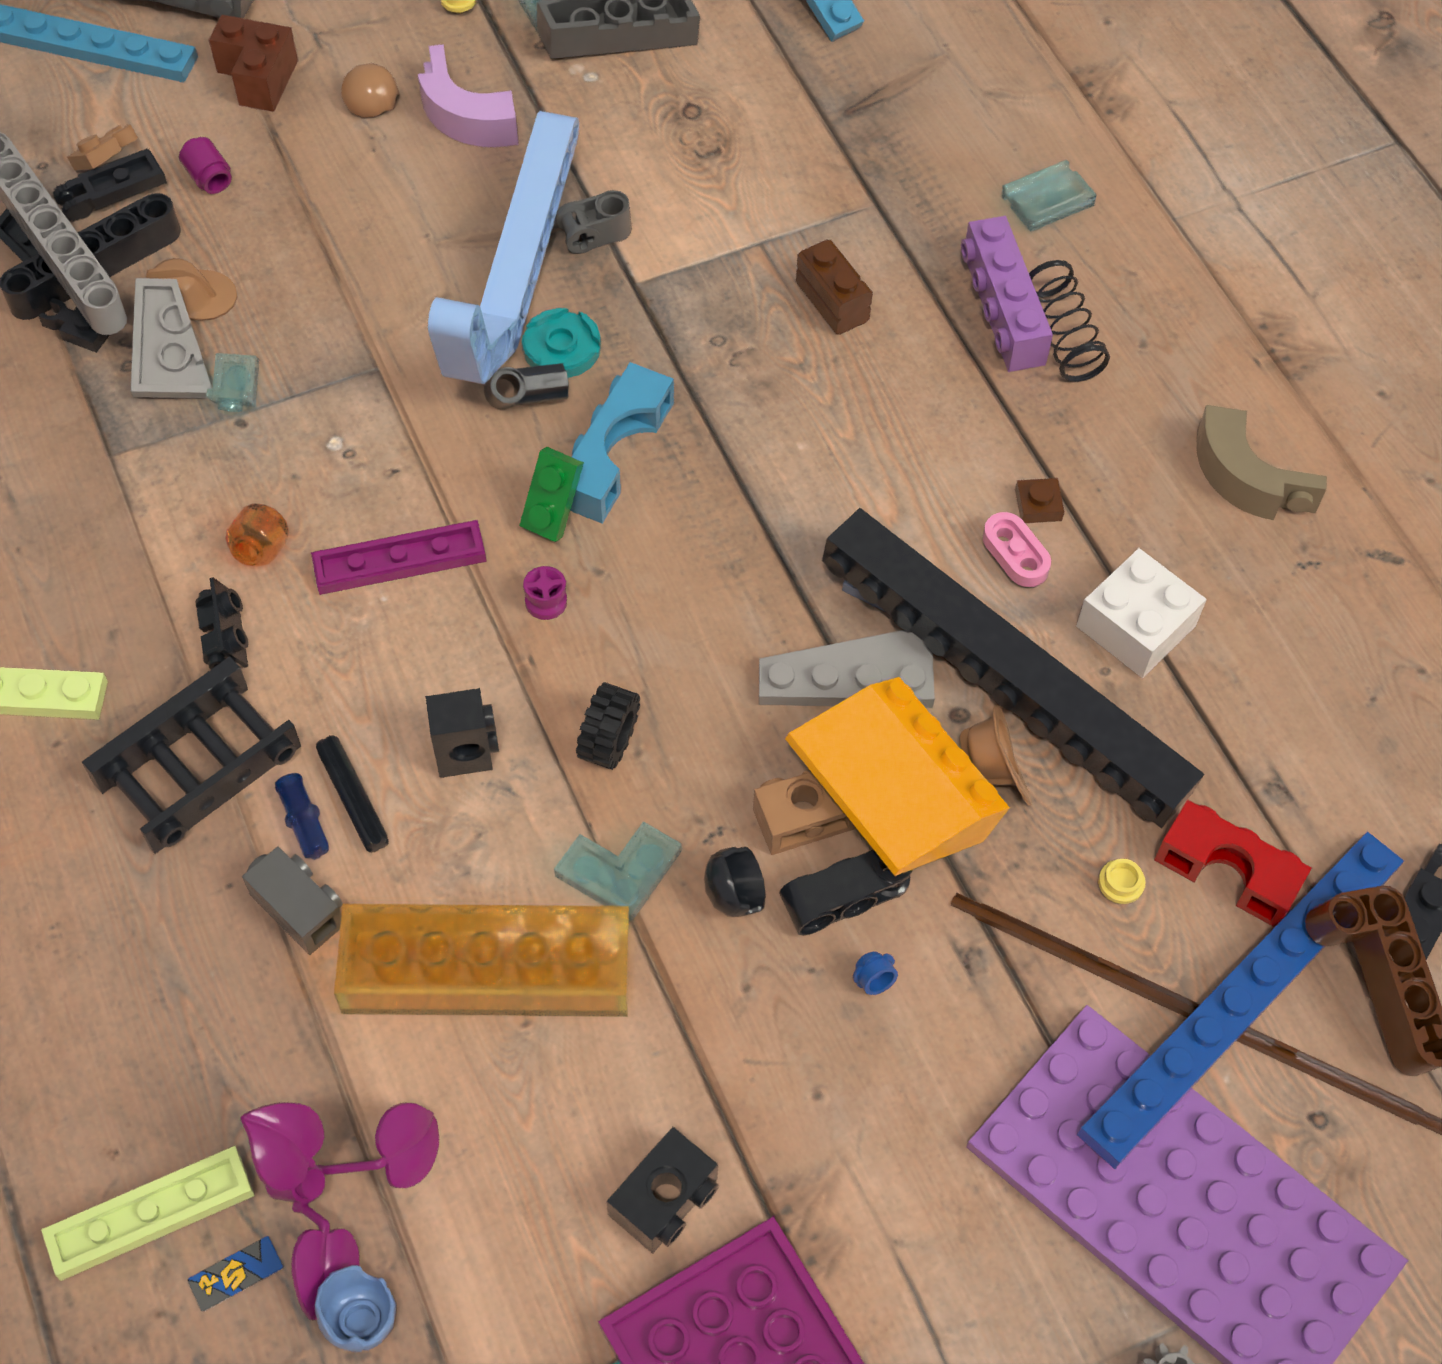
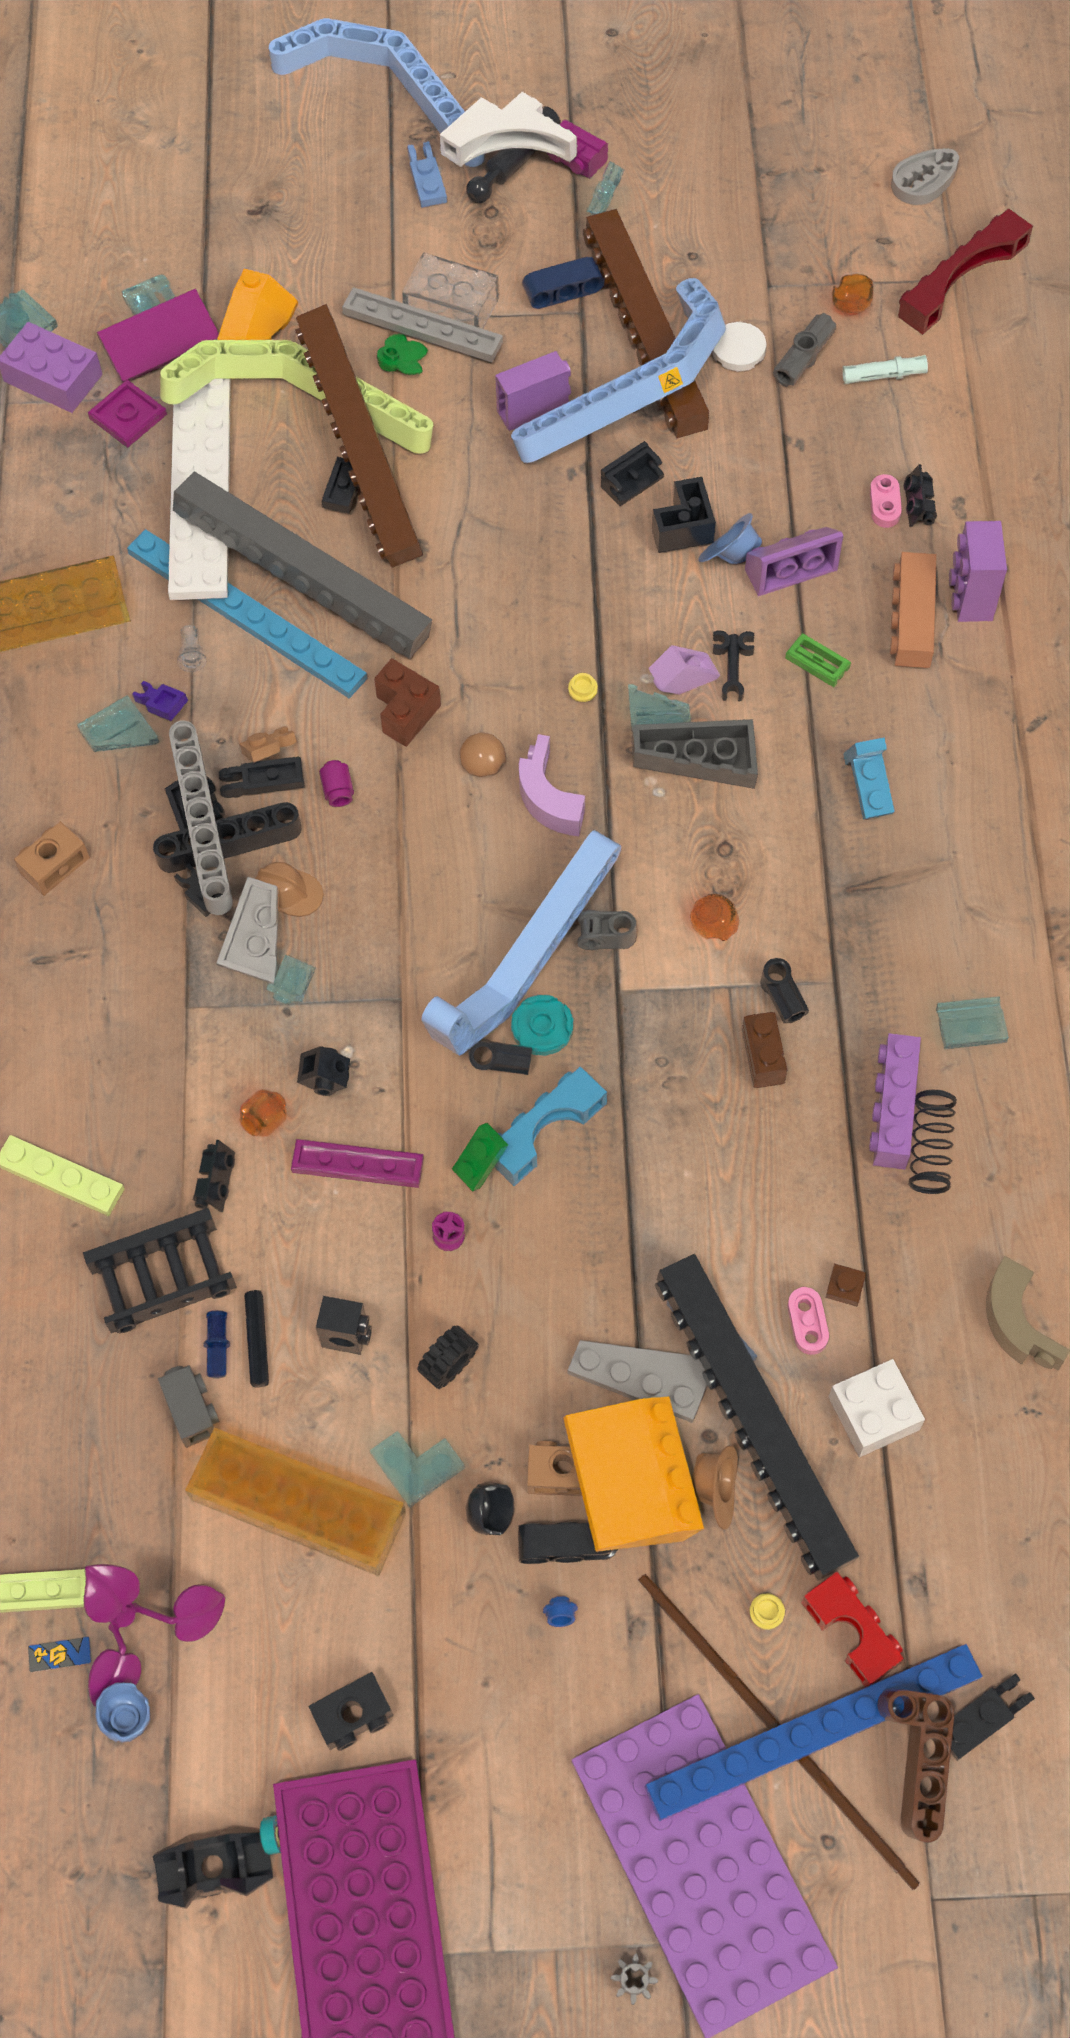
camera: 25 degrees right, 5 degrees up
(315, 462) = (323, 1070): none -> black brick
(713, 175) = (715, 917): none -> clear orange hair
(818, 219) = (784, 992): none -> black piece

